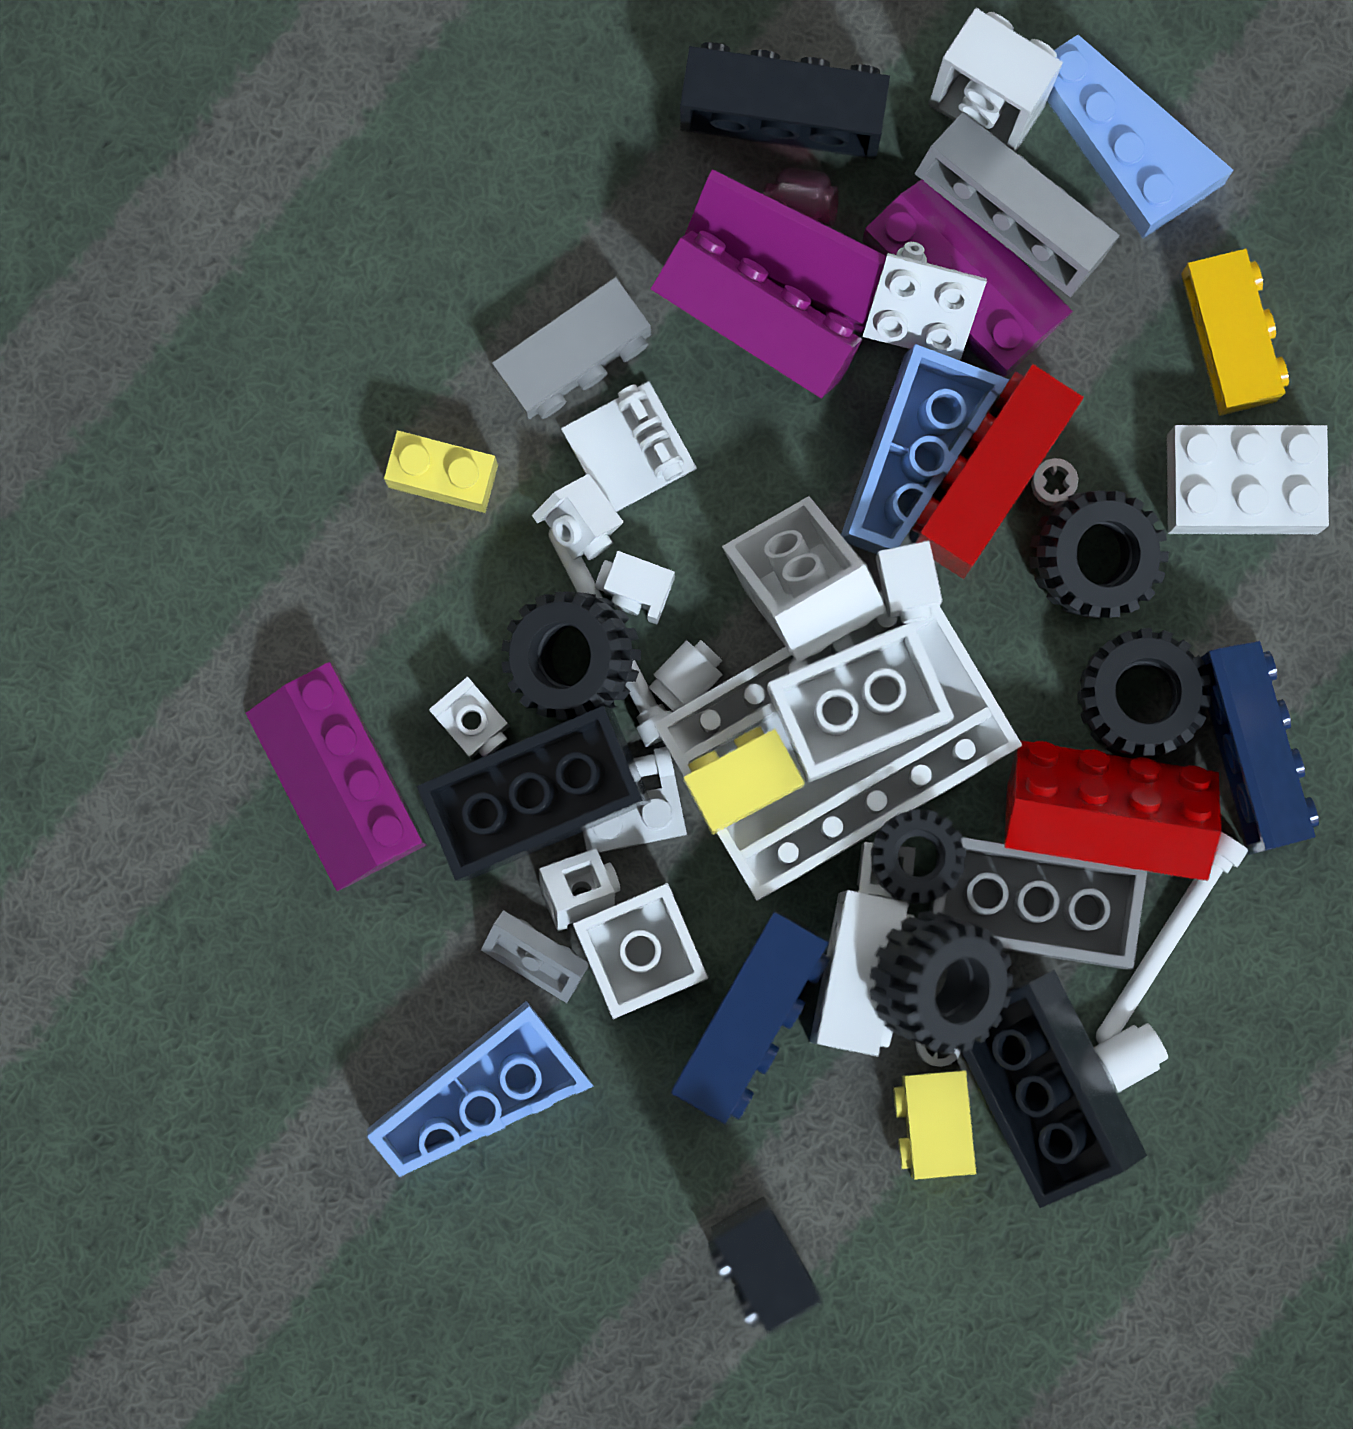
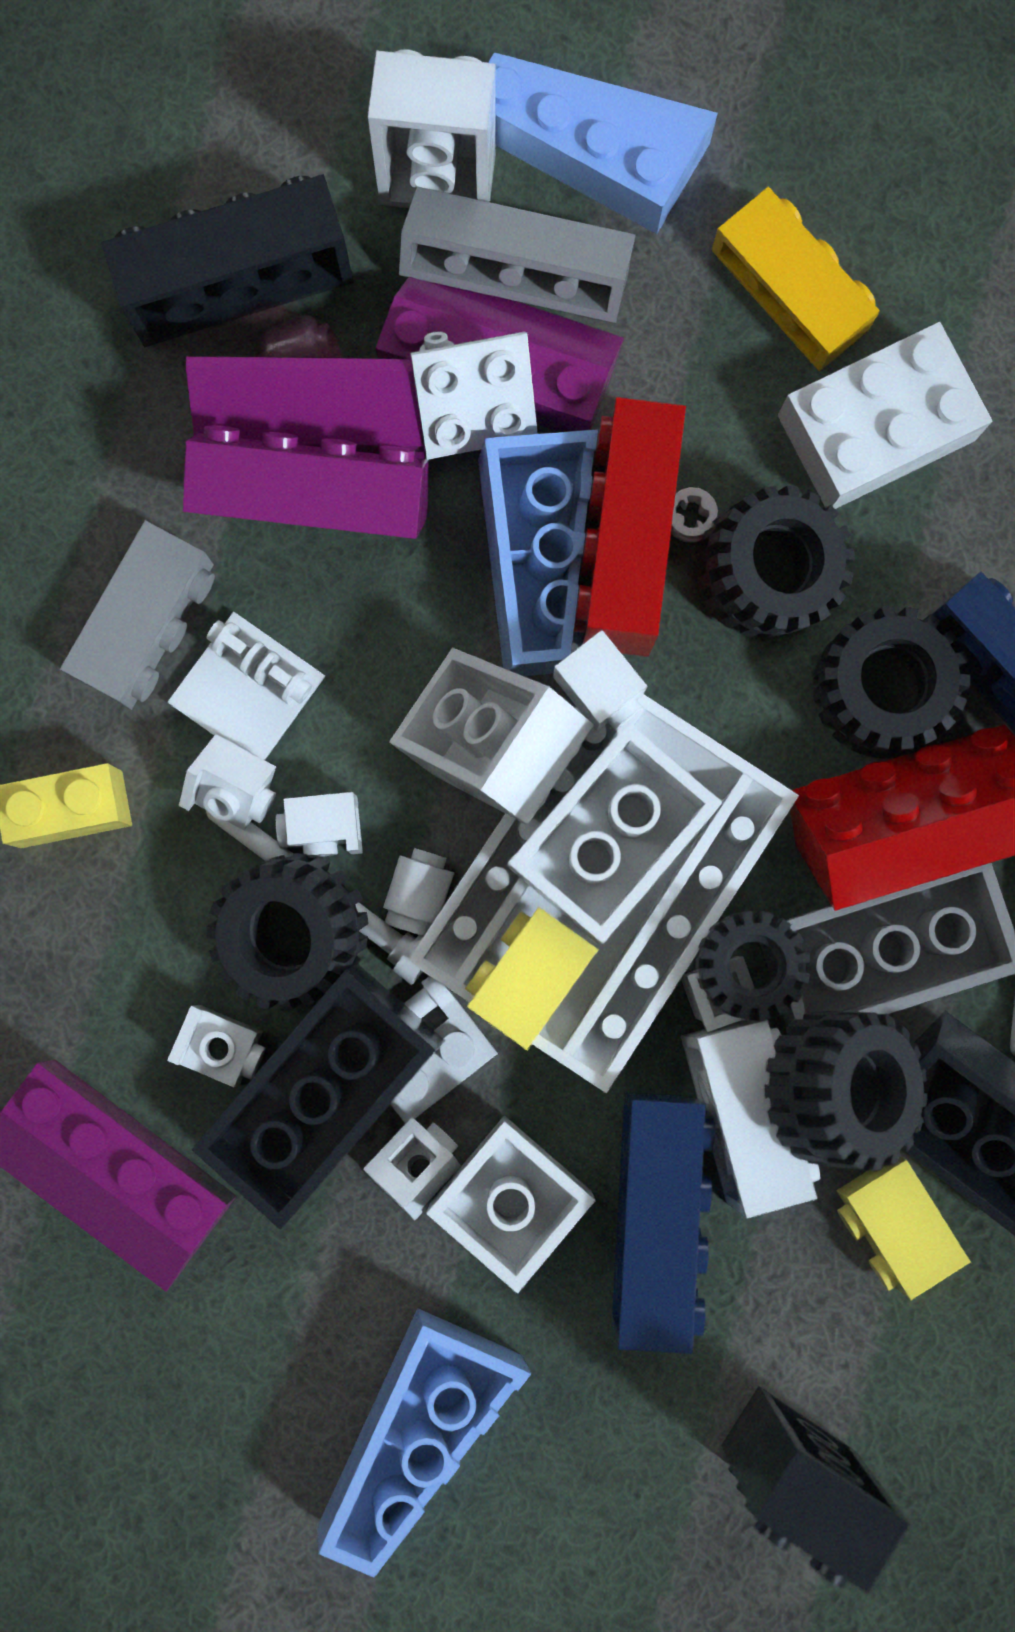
camera: 30 degrees left, 0 degrees up
(535, 956) = (406, 1260): light grey plate -> none

